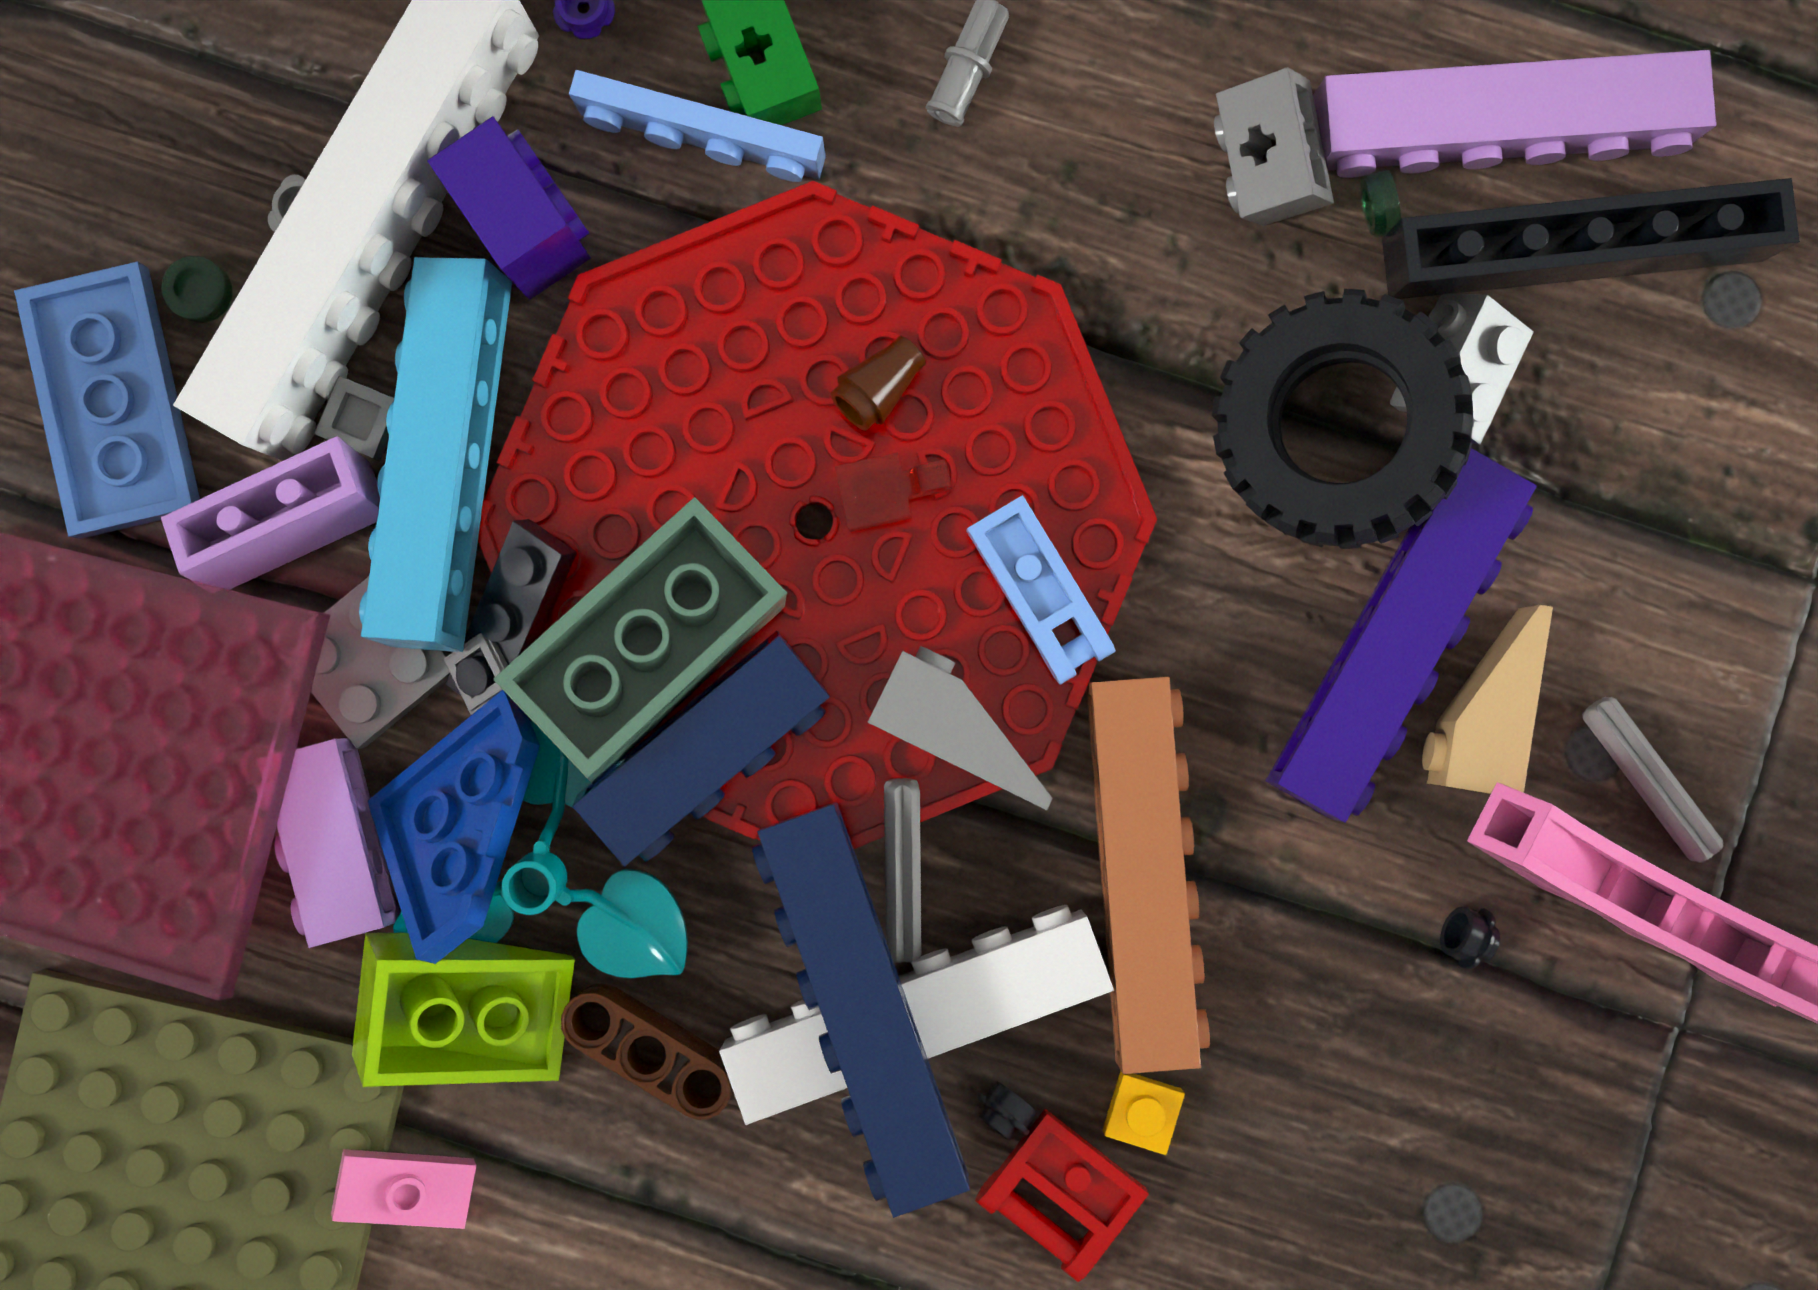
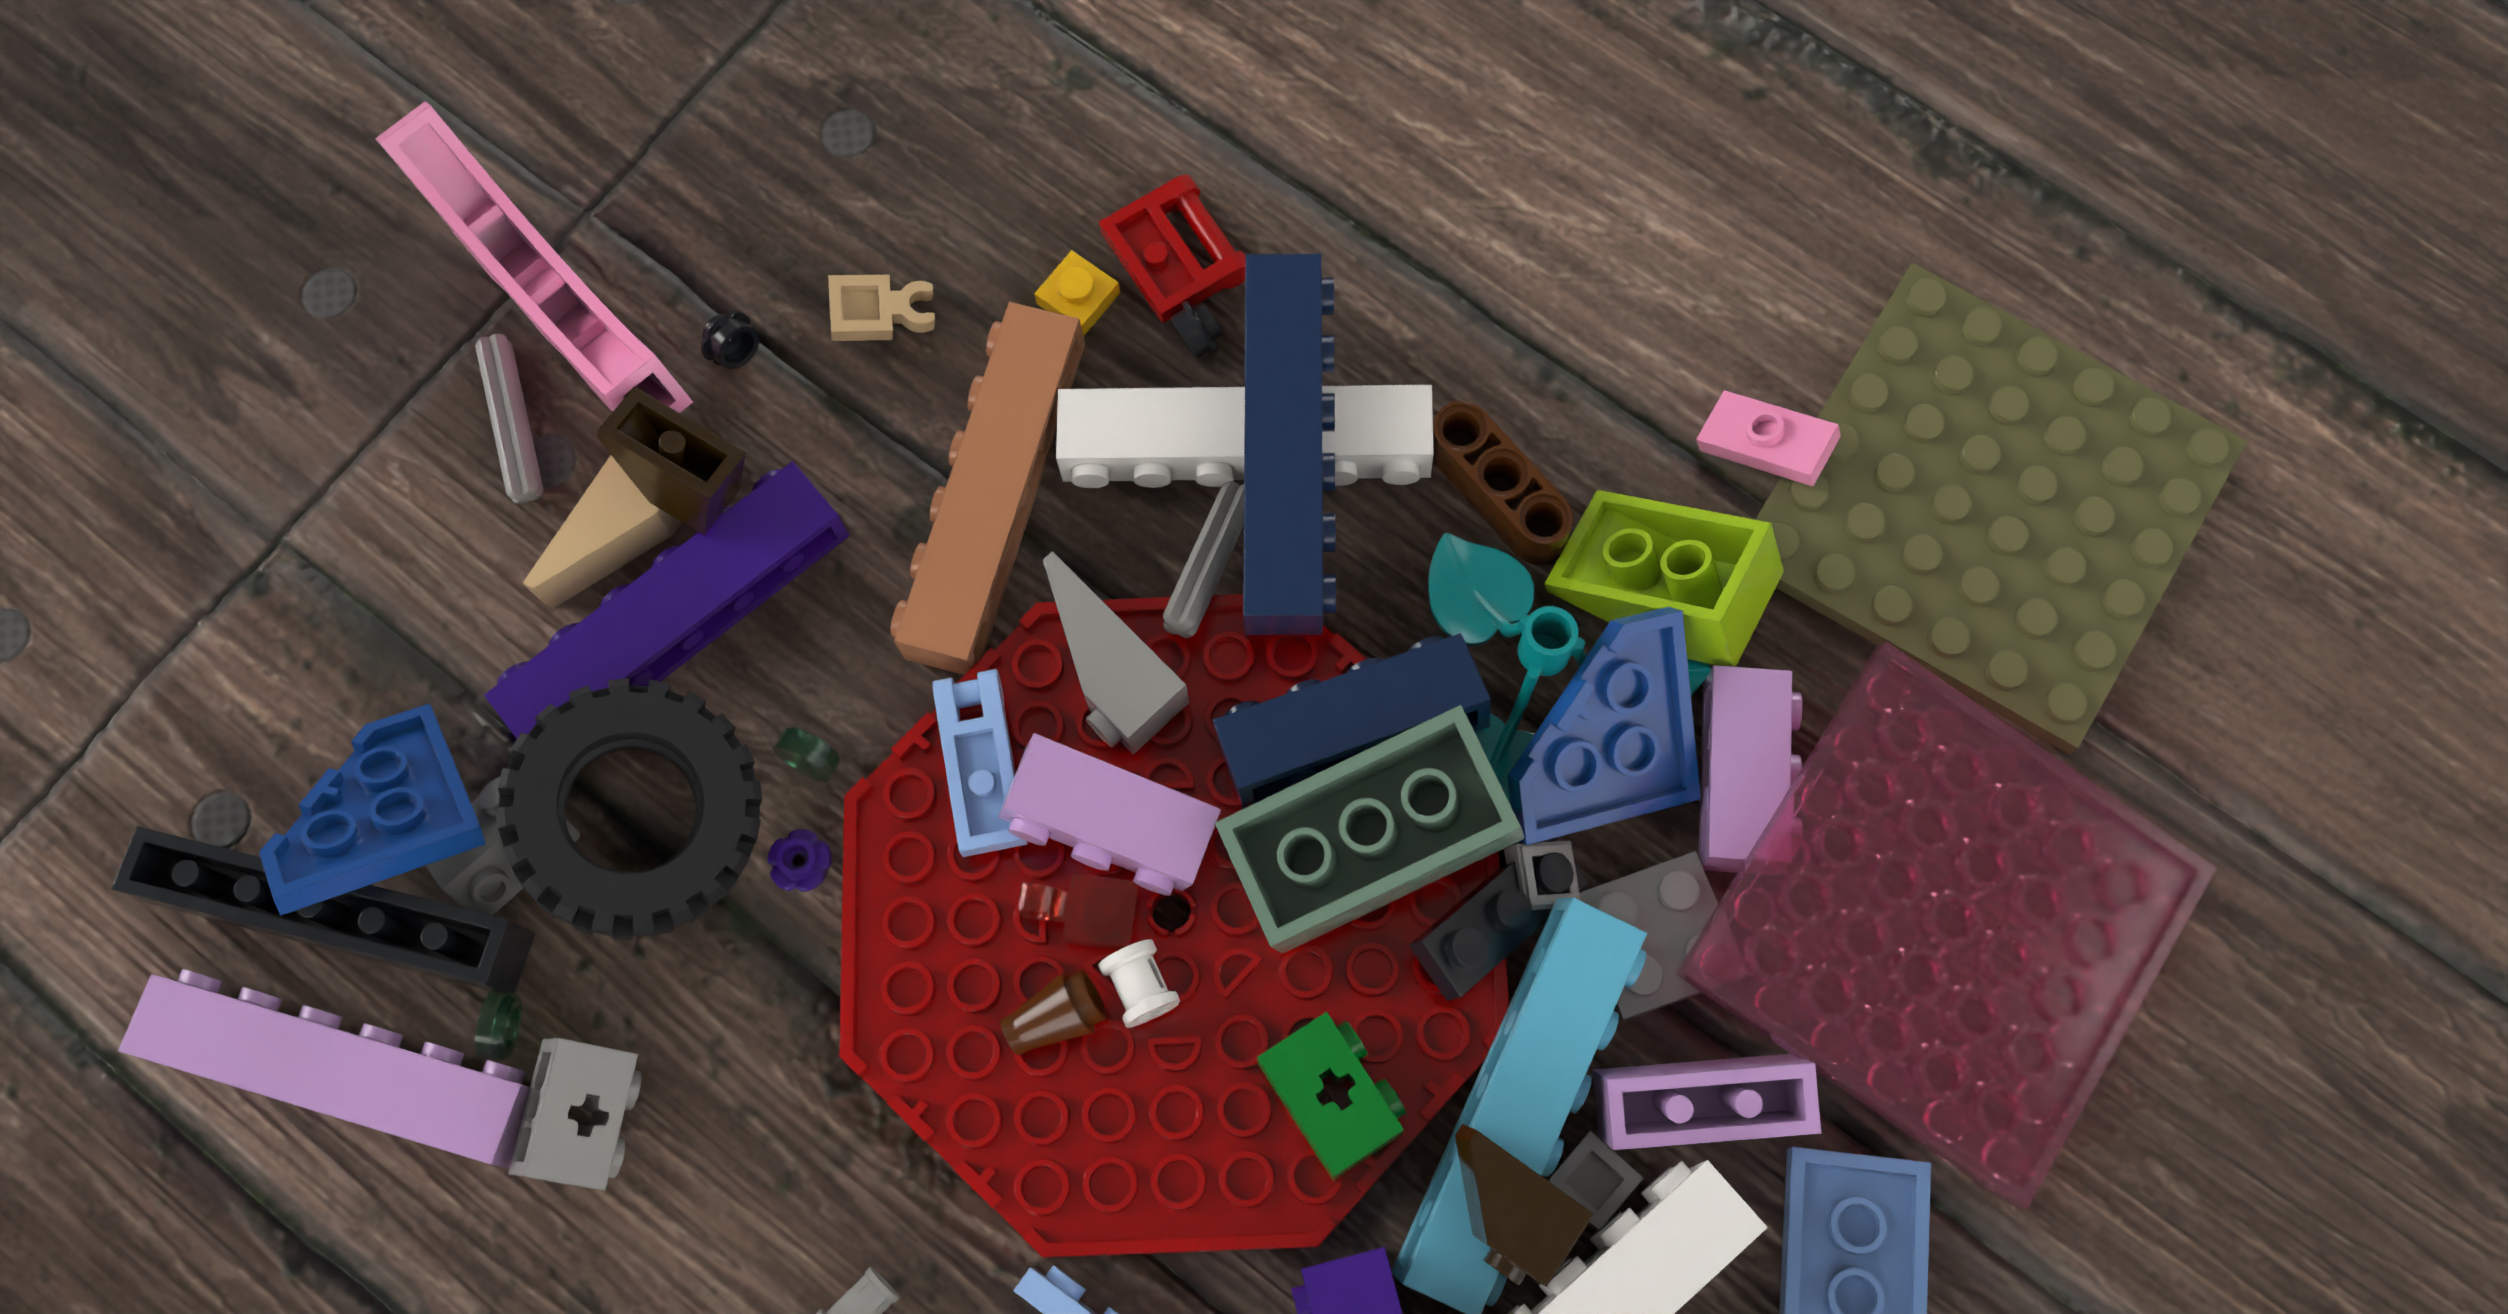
camera: 160 degrees left, 15 degrees down
(398, 347) = (1516, 1210): none -> dark brown slope
(579, 367) = (1296, 1074): none -> green brick
(812, 436) = (1139, 983): none -> white bush
(895, 571) = (1108, 816): none -> lavender brick
(1160, 457) = (803, 877): none -> dark purple plate
(1209, 548) = (807, 754): none -> clear green tile
(1345, 1017) = (866, 308): none -> tan plate
(1459, 770) = (673, 459): none -> dark brown slope
(1580, 334) = (376, 816): none -> blue plate

